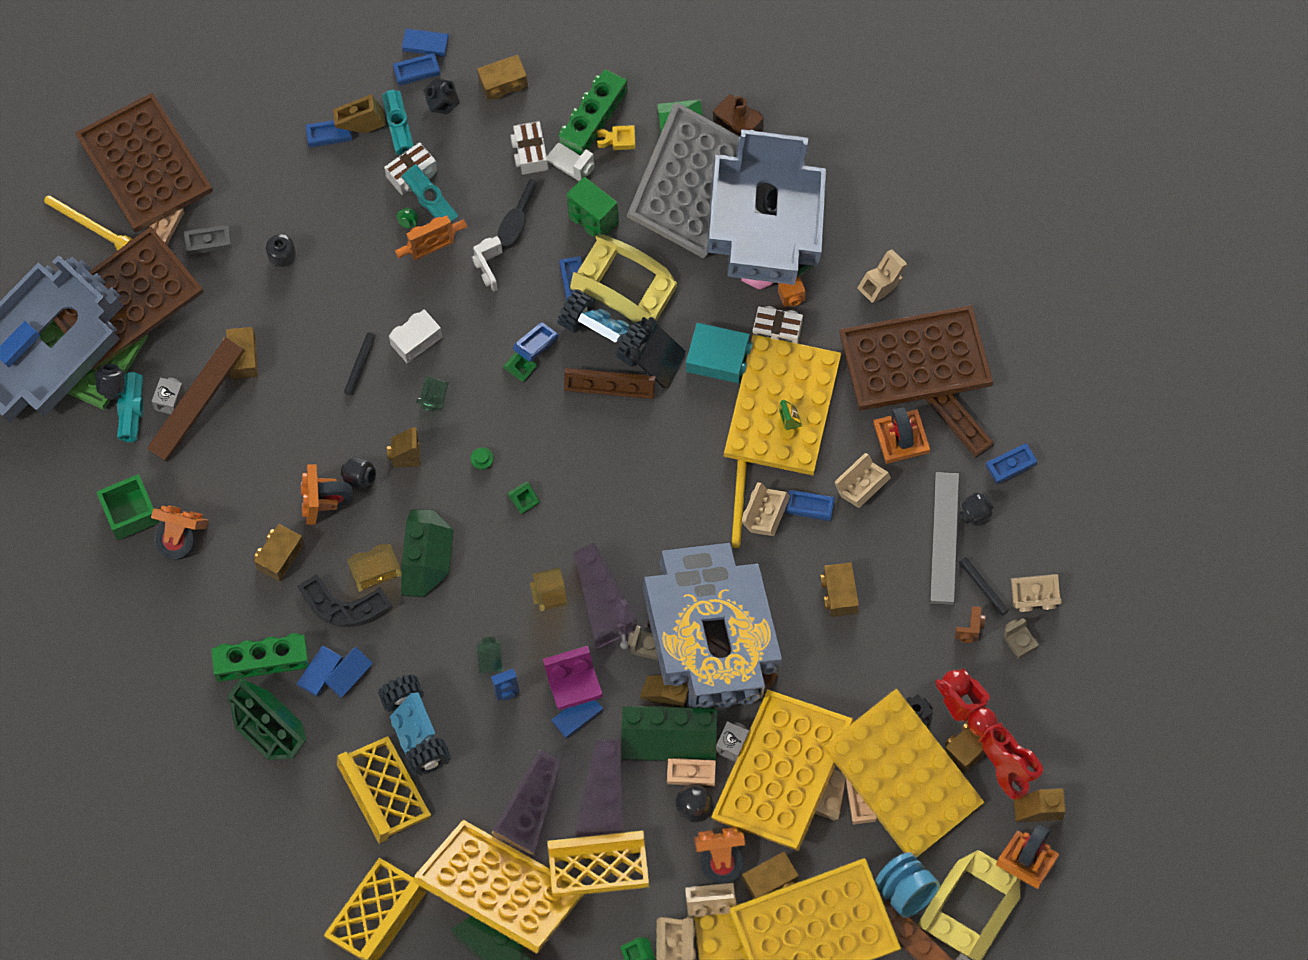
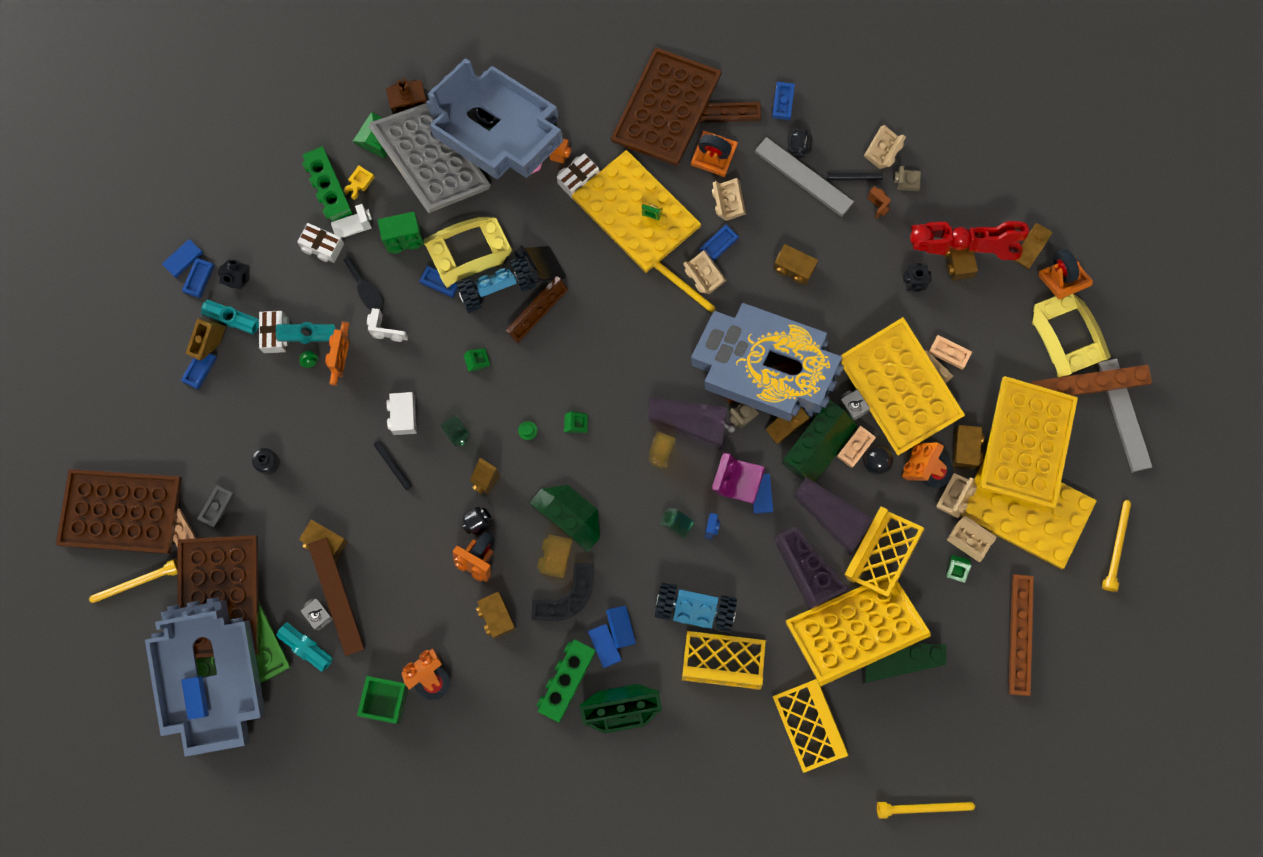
camera: 55 degrees left, 10 degrees up
(110, 381) = (277, 648): black head -> none
(502, 77) = (252, 225): pearl gold brick -> none
(535, 342) = (469, 337): tile -> none
(718, 353) = (568, 225): teal brick -> none
(884, 278) = (594, 85): tan brick -> none
(903, 774) = (957, 313): yellow plate -> none
(907, 884) = (1036, 363): dark azure wheel -> none

